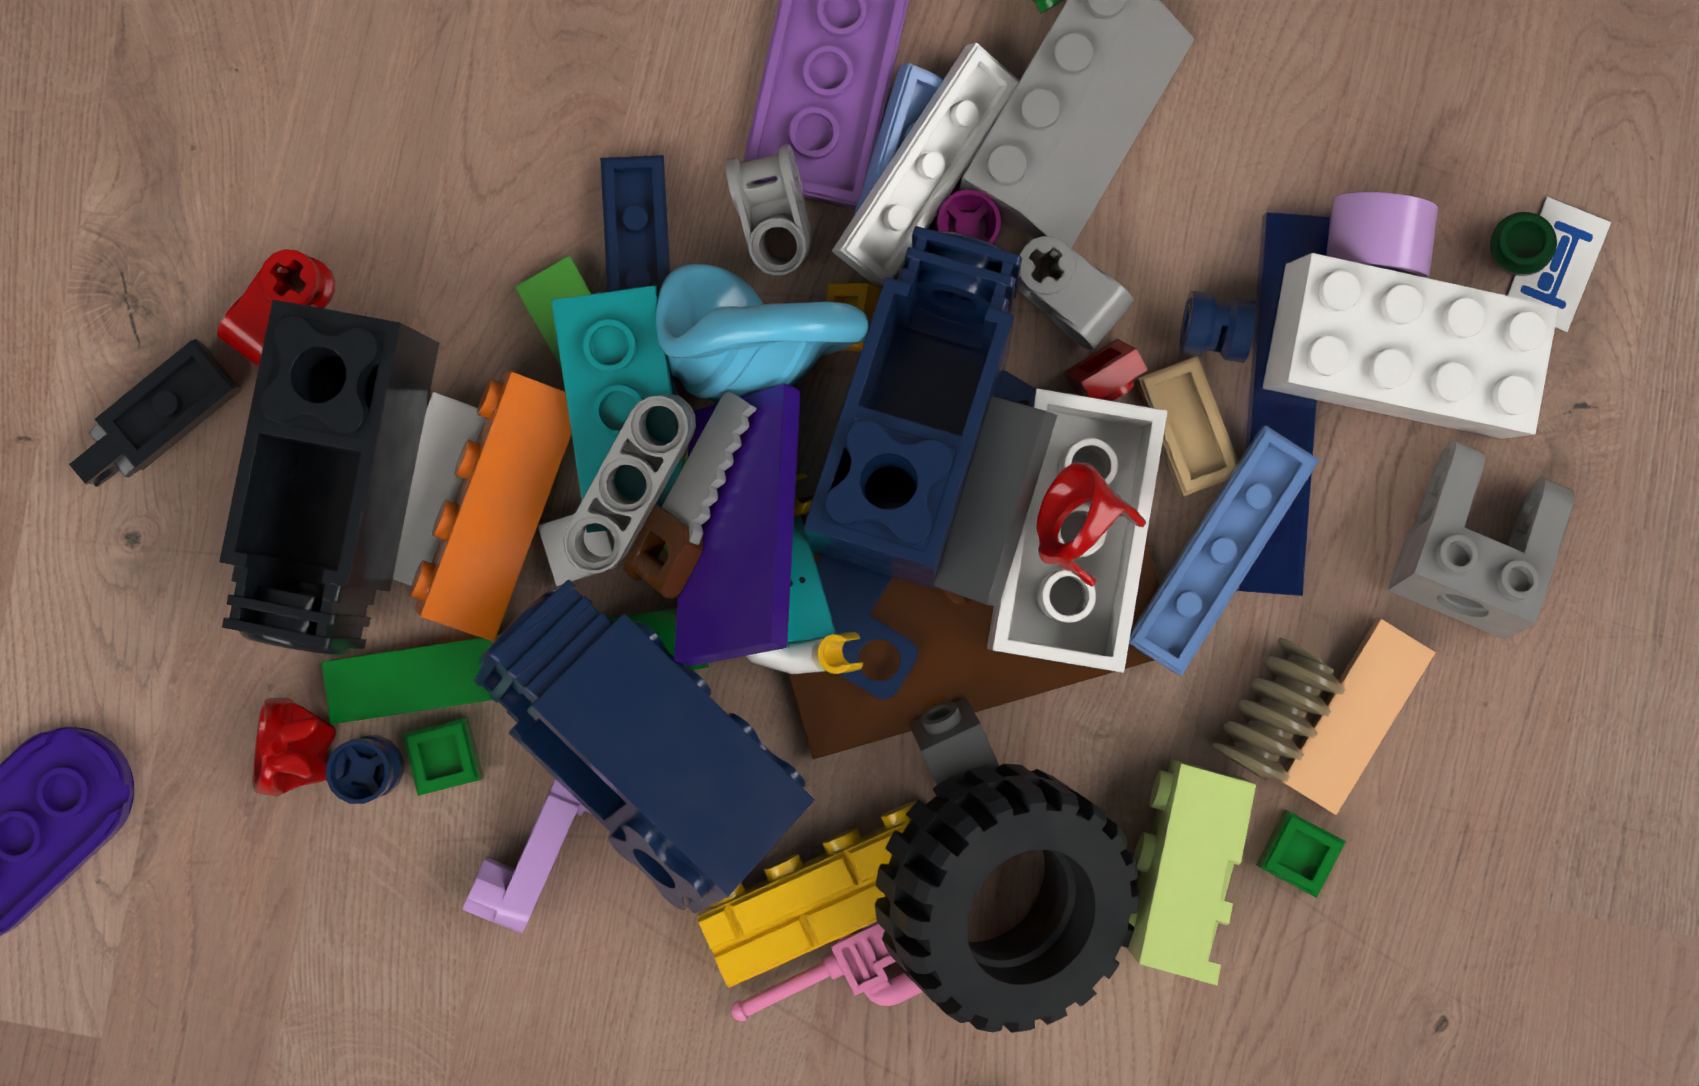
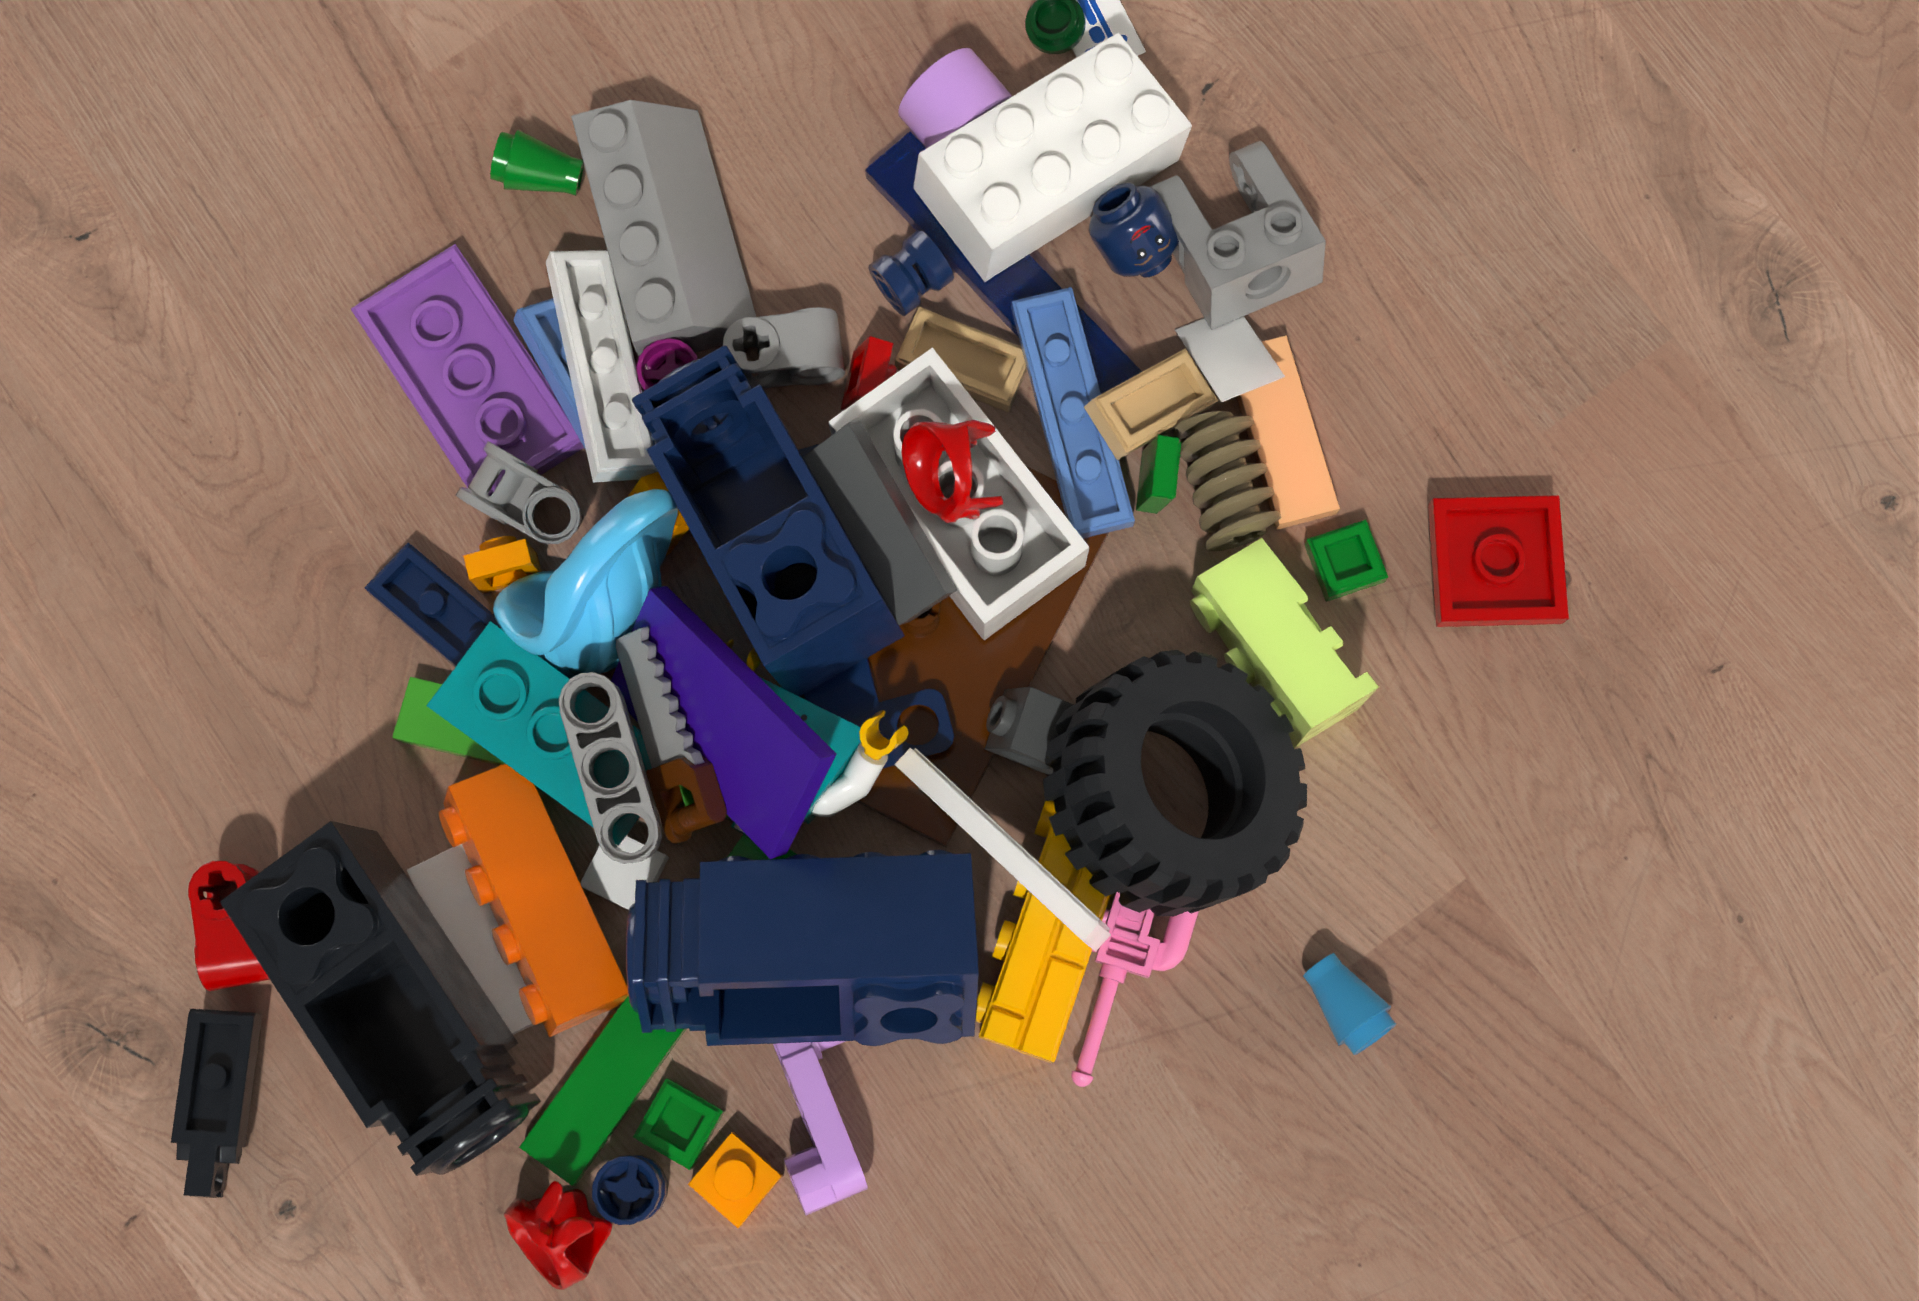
camera: 50 degrees left, 10 degrees down
(442, 833) = (735, 1179): none -> light orange plate
(712, 239) = (501, 563): none -> light orange plate
(843, 815) = (1004, 849): none -> white tile
(1235, 658) = (1158, 474): none -> green tile
(1283, 604) = (1150, 403): none -> tan tile
(1377, 627) = (1230, 356): none -> white sticker
(1406, 968) = (1498, 561): none -> red plate
(1409, 464) = (1133, 230): none -> dark blue head

